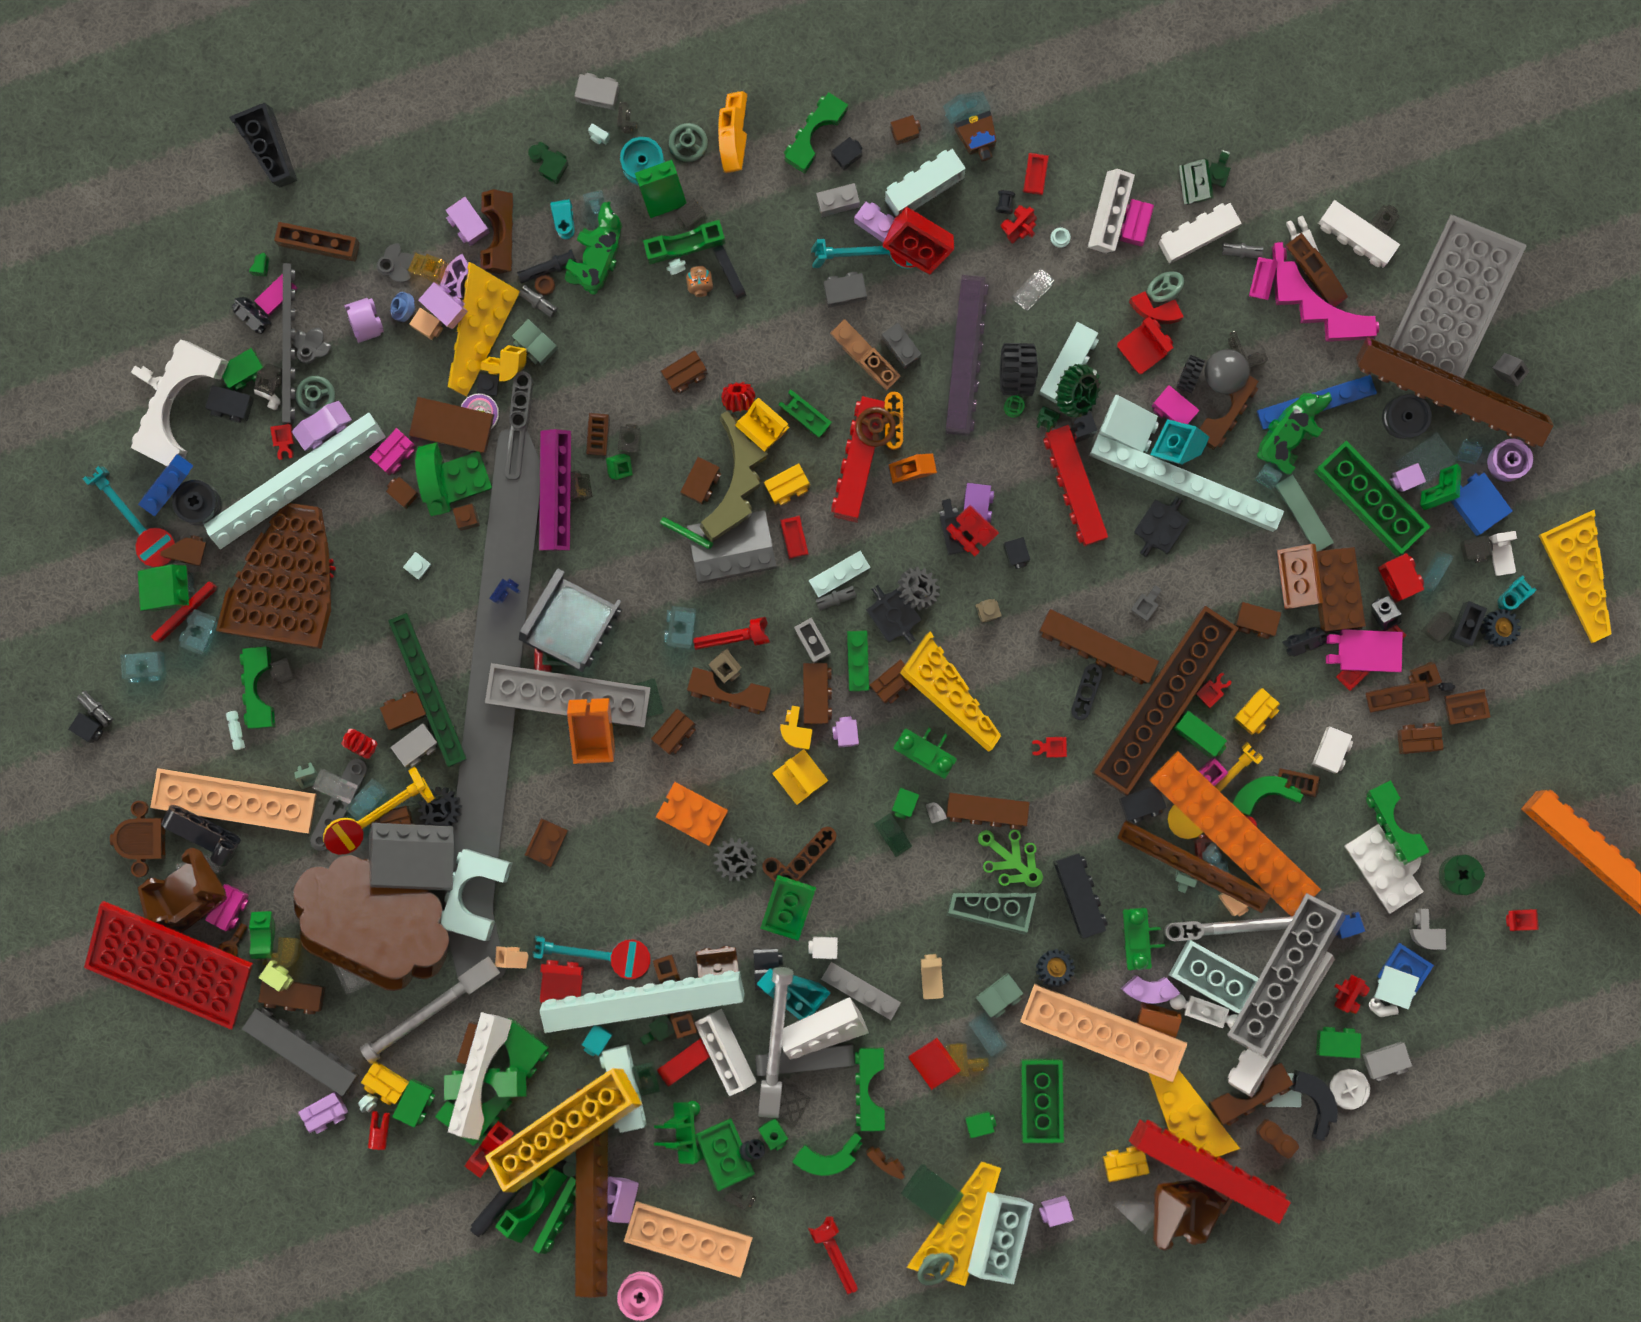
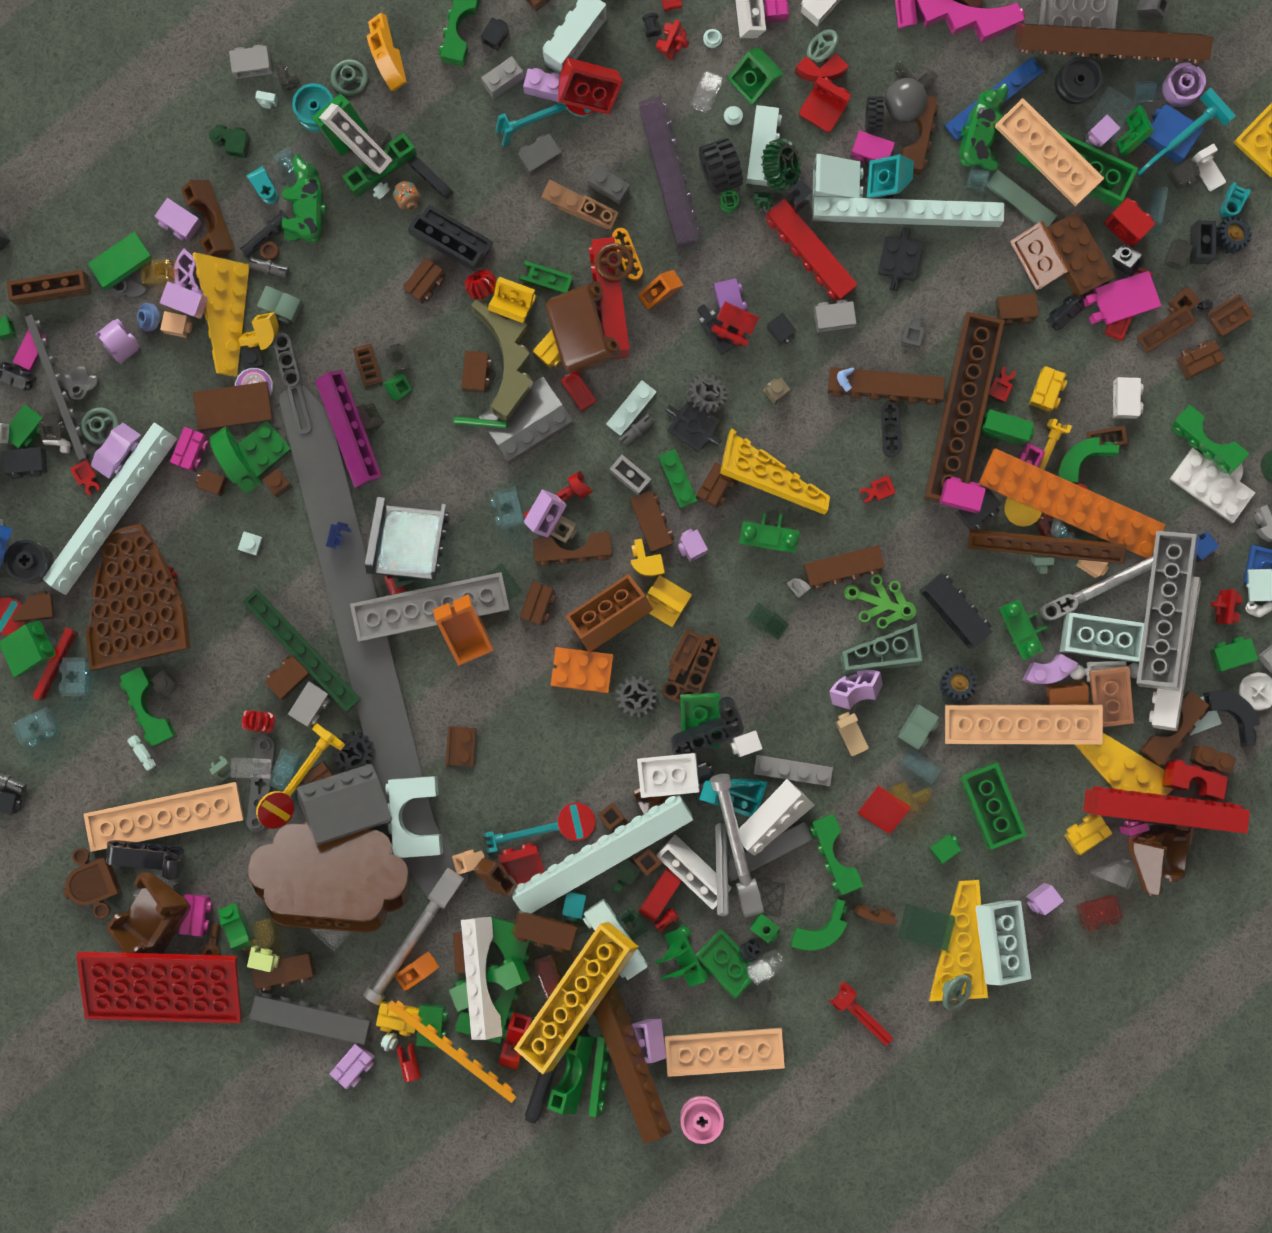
camera: 25 degrees left, 0 degrees up
(395, 241) = (120, 261): none -> green tile
(420, 1045) = (416, 971): none -> orange slope
(420, 1127) = (446, 1045): none -> light orange plate
(530, 984) = (495, 877): none -> reddish brown brick
(546, 1095) = (547, 972): none -> clear red brick
(557, 1054) = (543, 931): none -> reddish brown wedge
(669, 210) = (355, 138): none -> white brick
(681, 1089) = (666, 920): none -> red pin
(714, 647) = (545, 513): none -> lavender brick
(726, 340) = (450, 238): none -> black brick
(736, 949) = (668, 775): none -> white plate
(739, 768) = (609, 612): none -> dark orange brick
(752, 1062) = (722, 870): none -> light grey axle
(760, 921) = (705, 730): none -> black beam
(761, 1171) = (766, 965): none -> clear slope
(798, 835) = (684, 653): none -> reddish brown hinge
(815, 479) = (579, 329): none -> reddish brown windscreen
(904, 803) = (768, 589): green brick -> none
(953, 934) = (855, 688): none -> lavender brick
(1051, 322) = (733, 115): none -> light aqua plate
(1056, 625) = (843, 381): none -> light blue animal
(1074, 559) = (834, 316): none -> light grey brick
(1088, 290) = (755, 75): none -> green slope
(1107, 1245) = (1099, 912): none -> clear red brick
(1129, 785) = (962, 495): none -> dark pink brick
(1172, 1175) = (1133, 827): none -> dark pink plate
(1203, 1033) = (1113, 691): none -> nougat plate
(1265, 1161) = (1210, 783): none -> red arch
(1346, 478) = (1049, 152): none -> light nougat plate
(1531, 496) = (1215, 108): none -> teal piece

